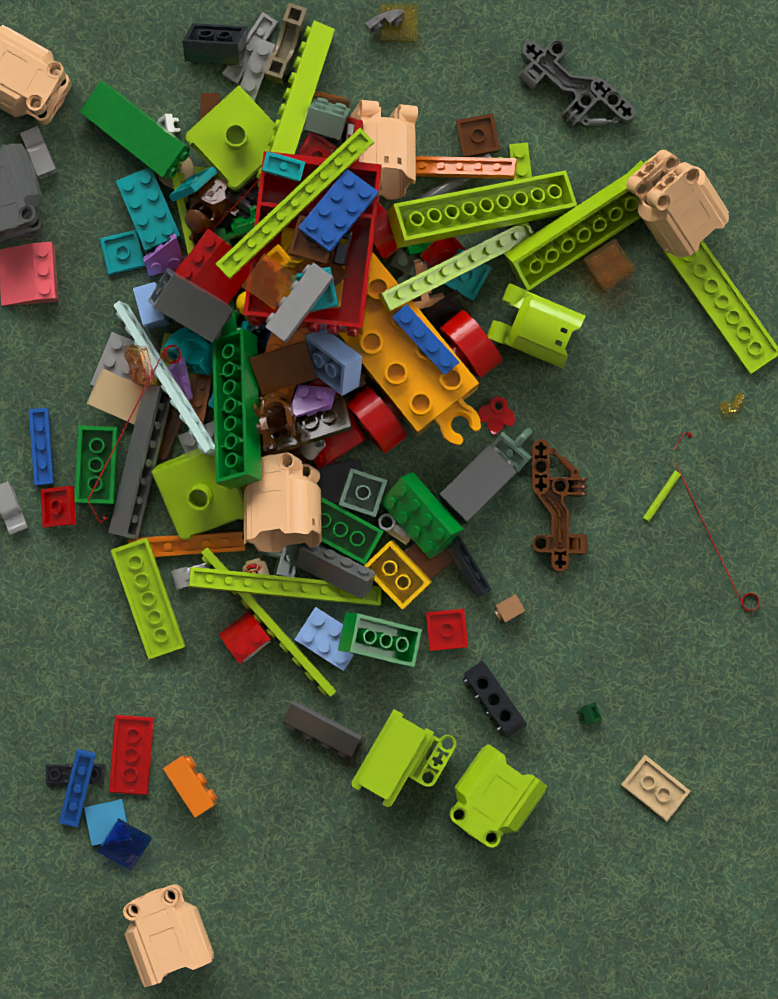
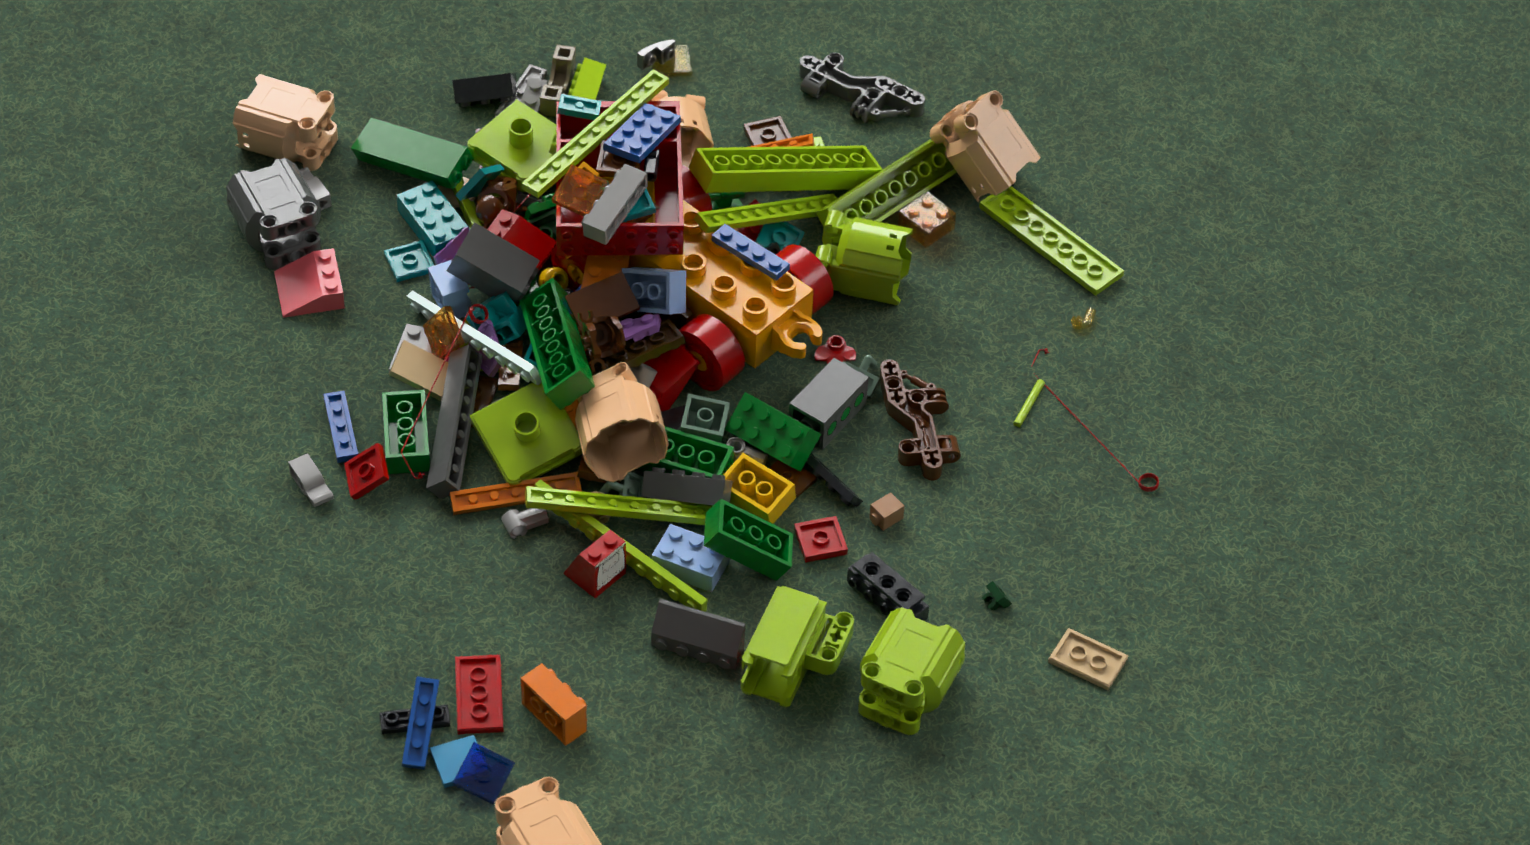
camera: 15 degrees left, 35 degrees down
(148, 598) = (479, 542): lime plate -> none

